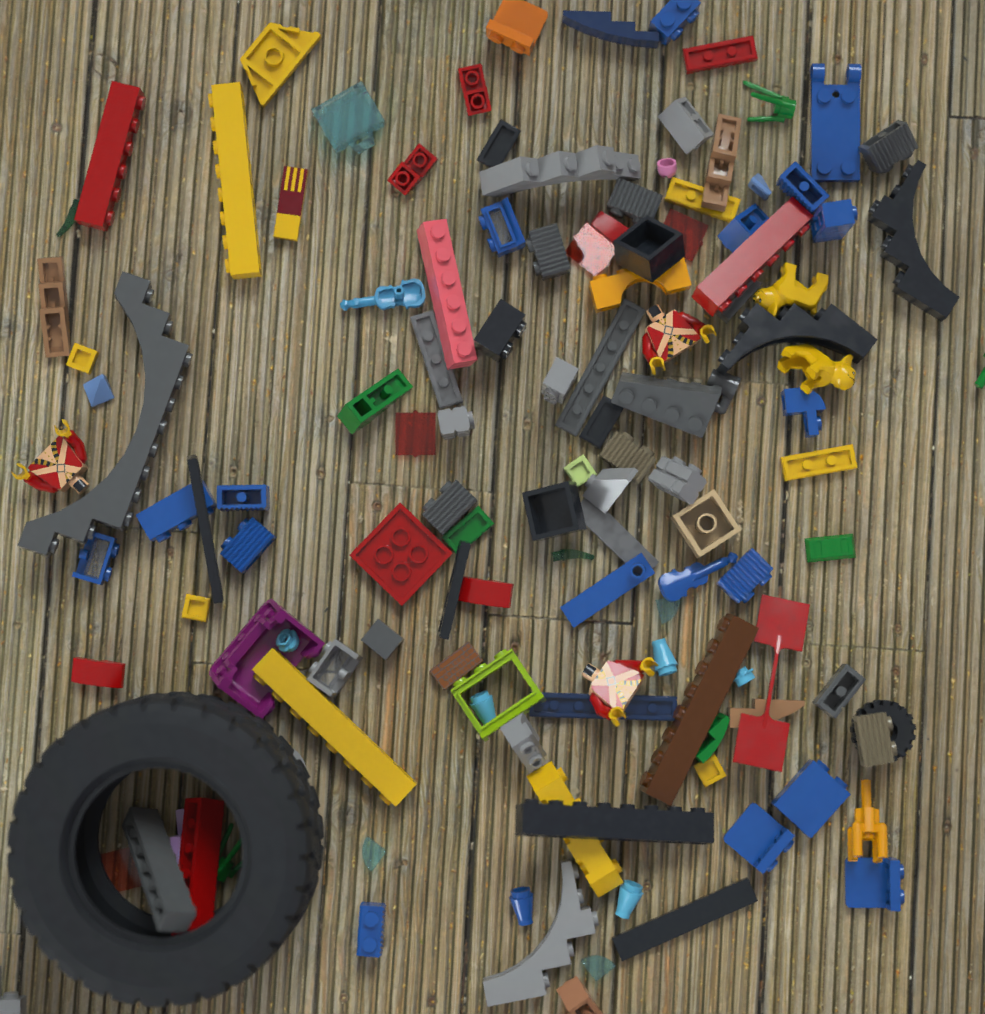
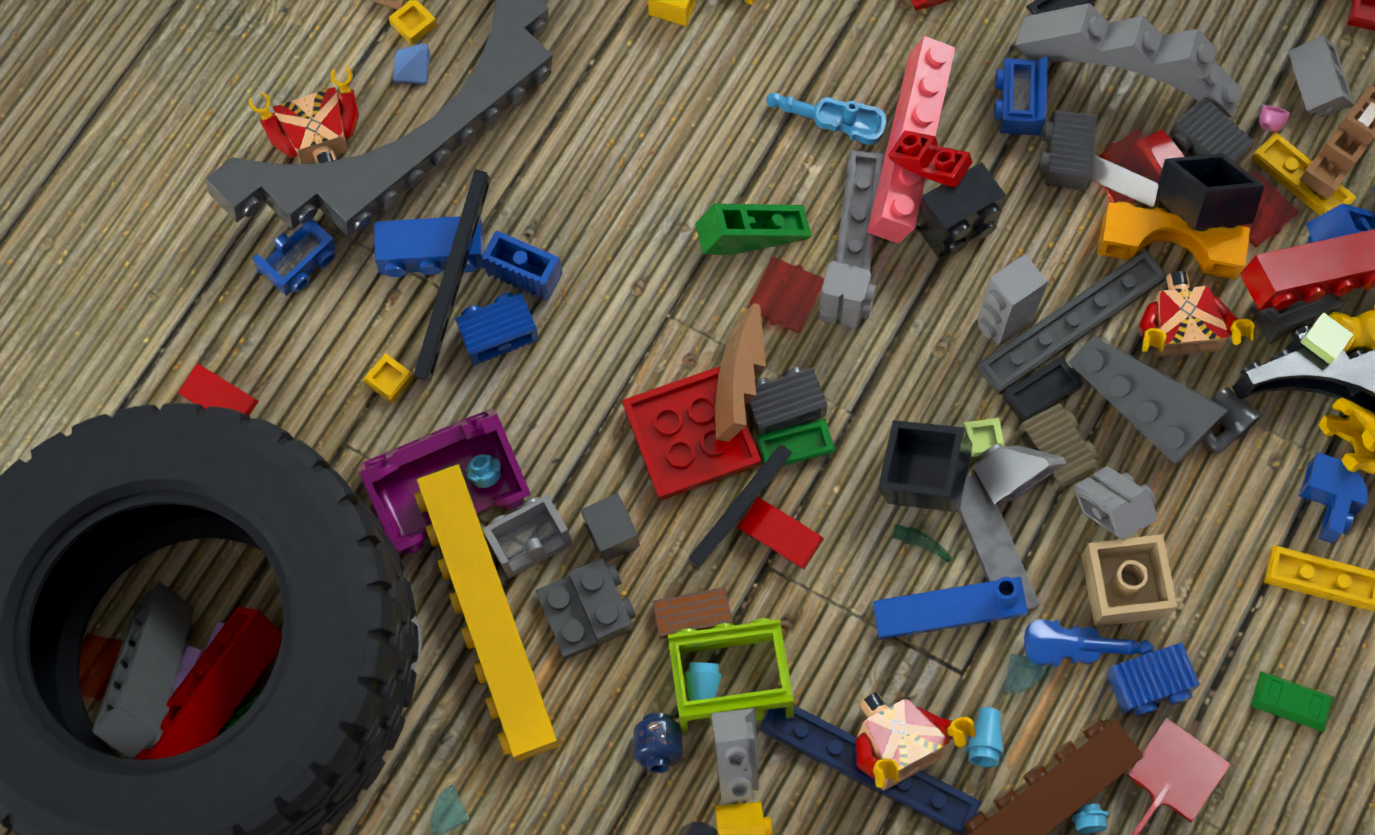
camera: 25 degrees right, 15 degrees down
(391, 694) = (586, 608): none -> dark grey plate
(410, 498) = (736, 379): none -> medium nougat slope
(467, 312) = (924, 157): none -> red slope
(474, 754) = (657, 742): none -> dark blue head
(592, 260) = (1124, 181): none -> white sticker
(760, 315) = (1326, 338): none -> yellowish green tile

